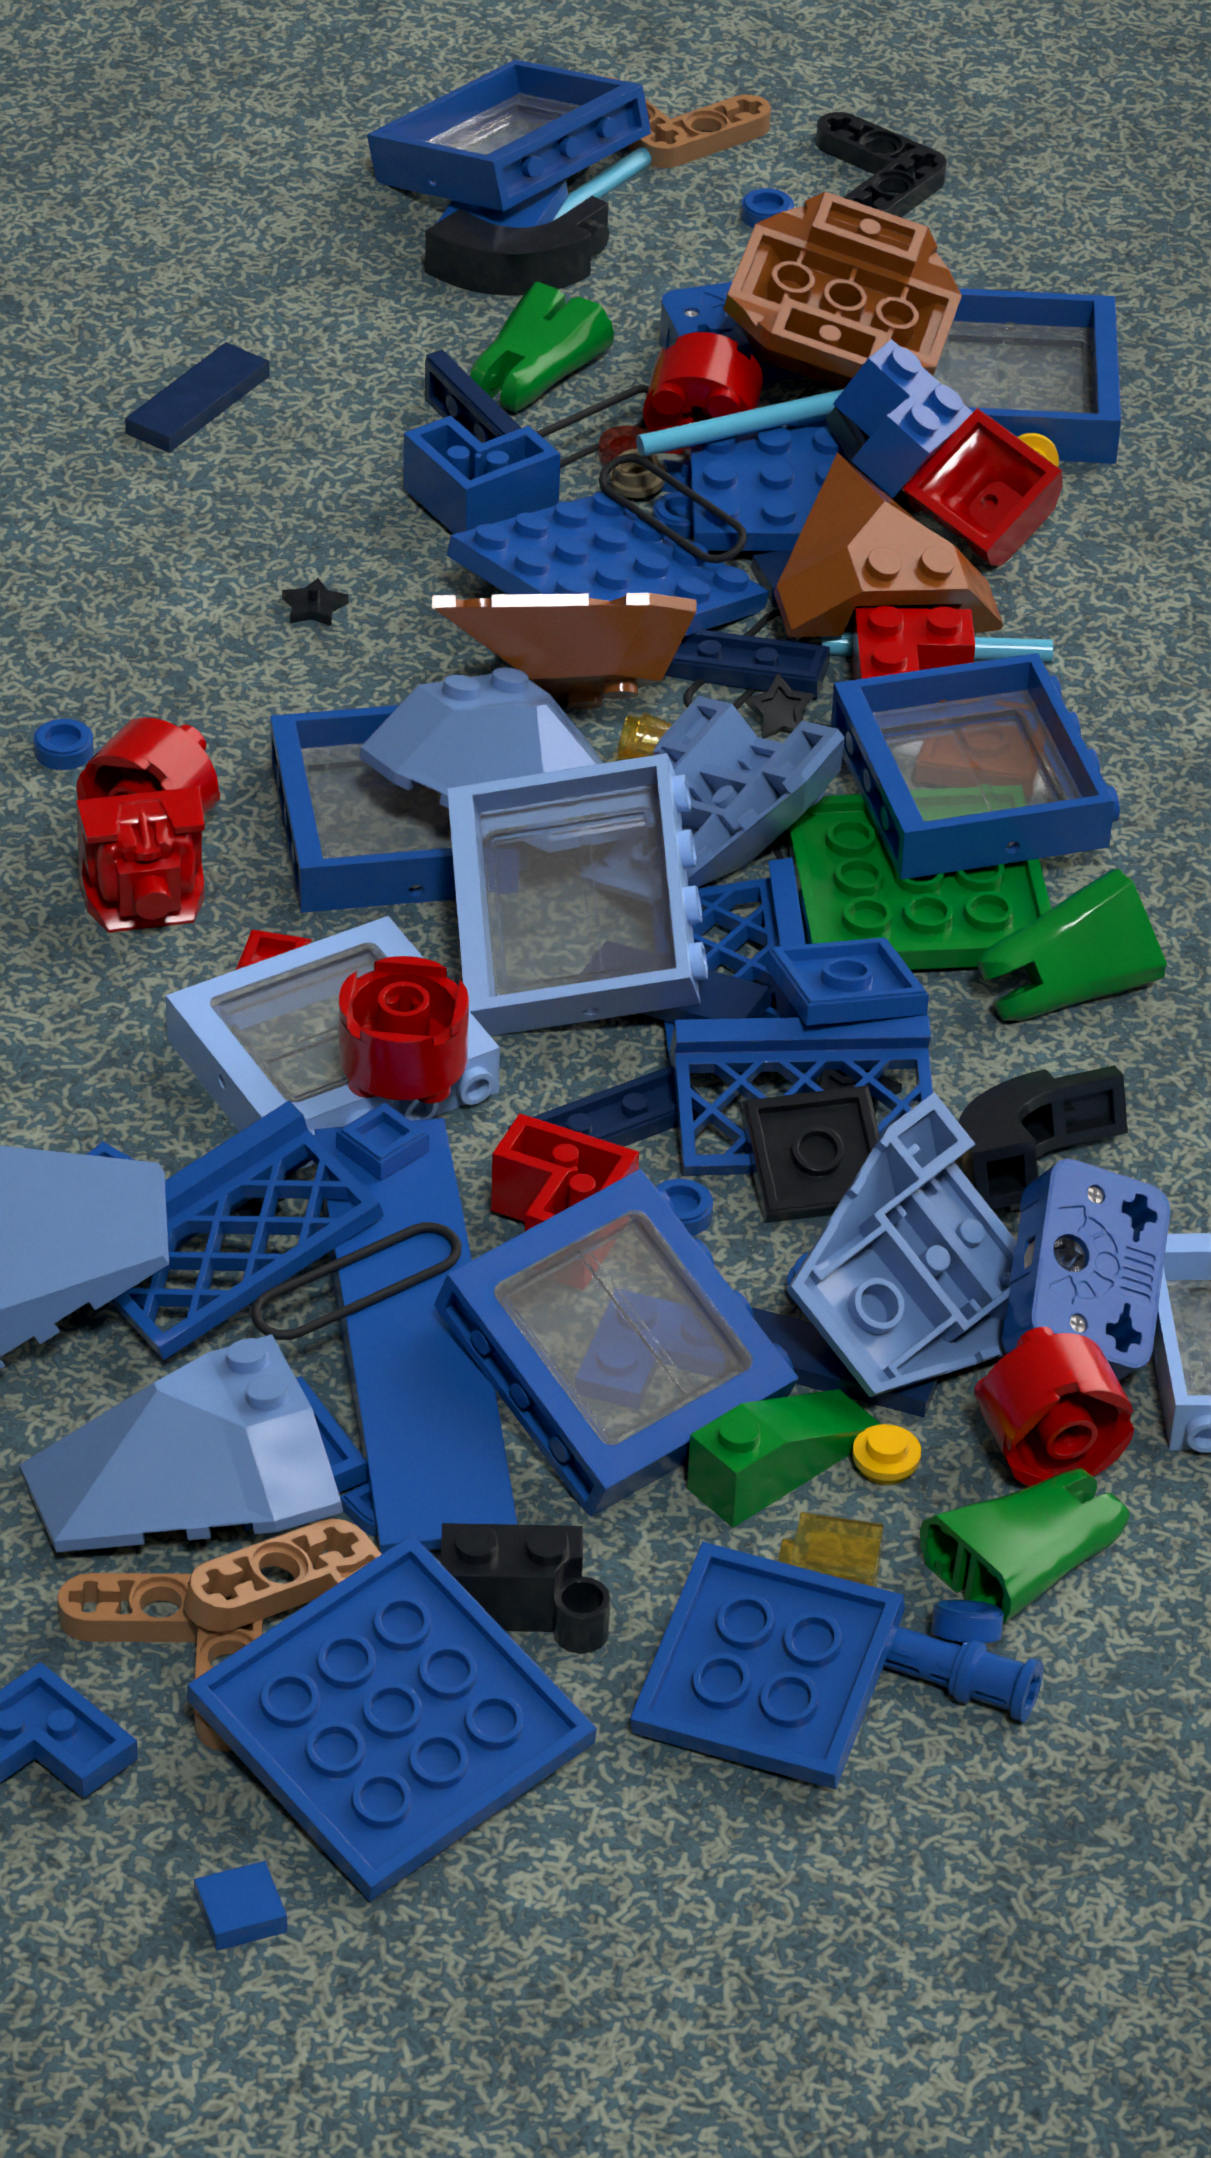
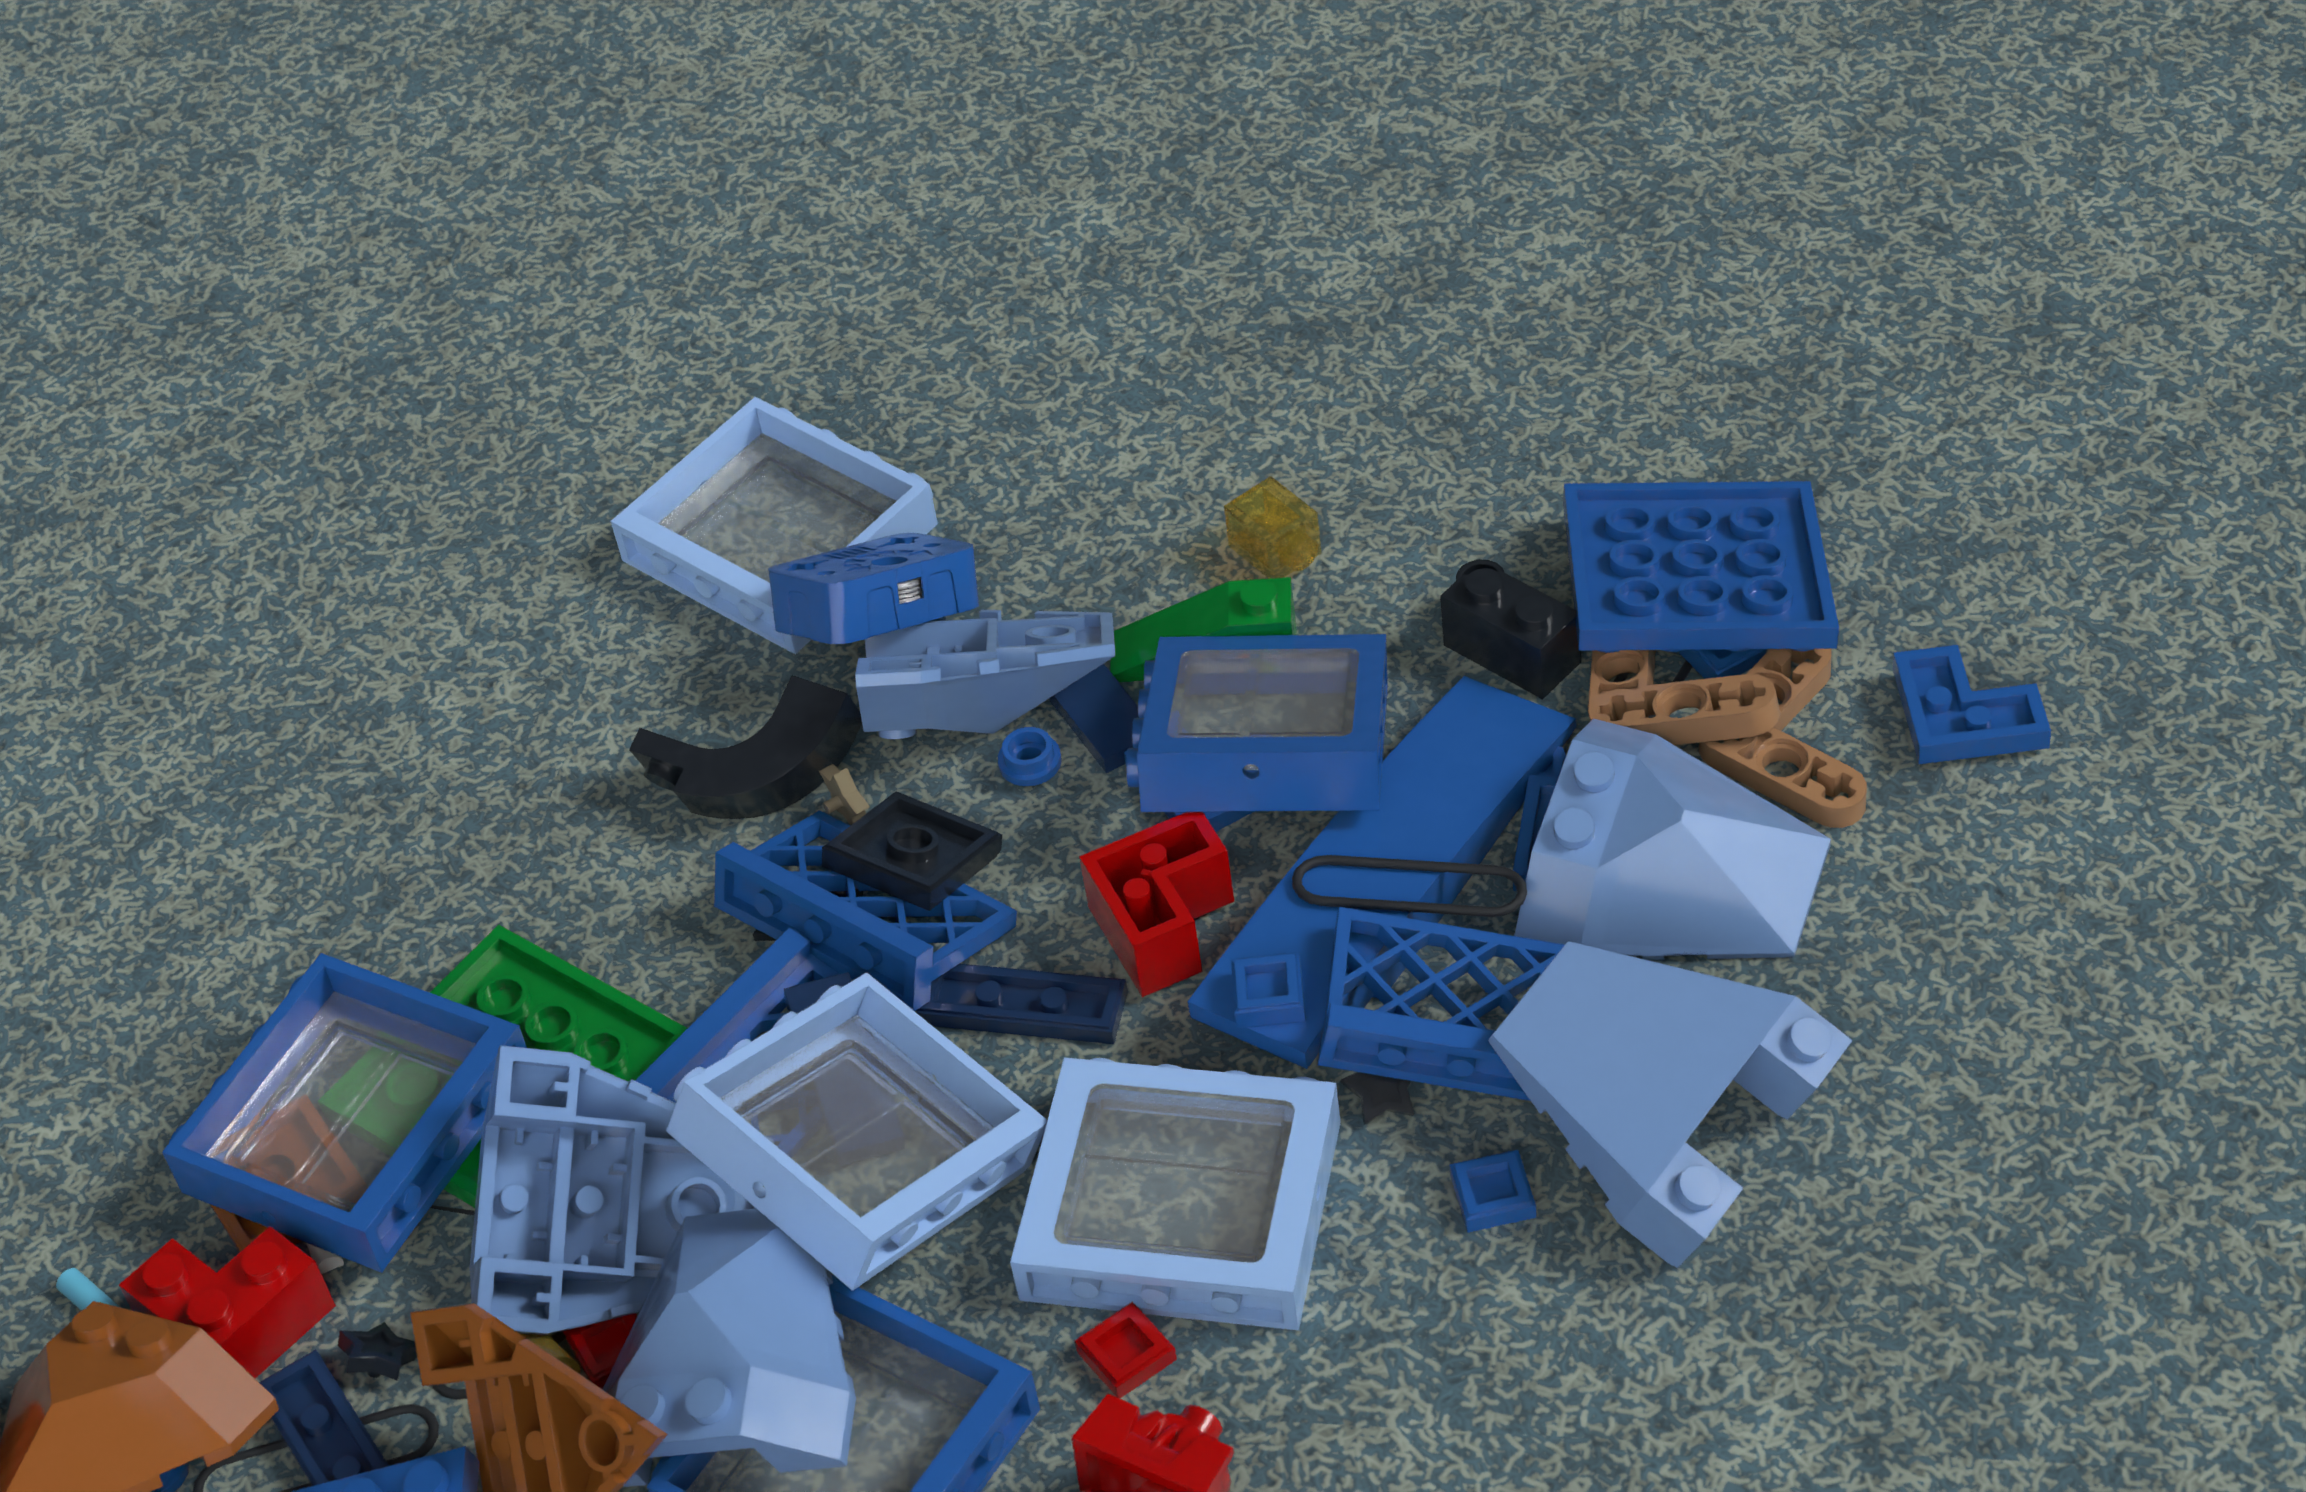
camera: 130 degrees left, 5 degrees up
(240, 1905) = (1903, 534): blue tile -> none
(403, 1030) = (1157, 1053): red brick -> none
(691, 1203) = (1054, 888): blue tile -> none
(768, 1665) = (1399, 476): blue plate -> none
(846, 981) = (739, 918): blue plate -> none
(886, 1454) = (1135, 600): yellow plate -> none
(967, 1621) = (1226, 456): blue tile -> none
(968, 1671) = (1264, 429): blue pin -> none
(1023, 1541) = (1129, 485): green piece -> none
(1055, 1406) = (1015, 520): red brick -> none
(1078, 950) = (478, 890): green piece -> none

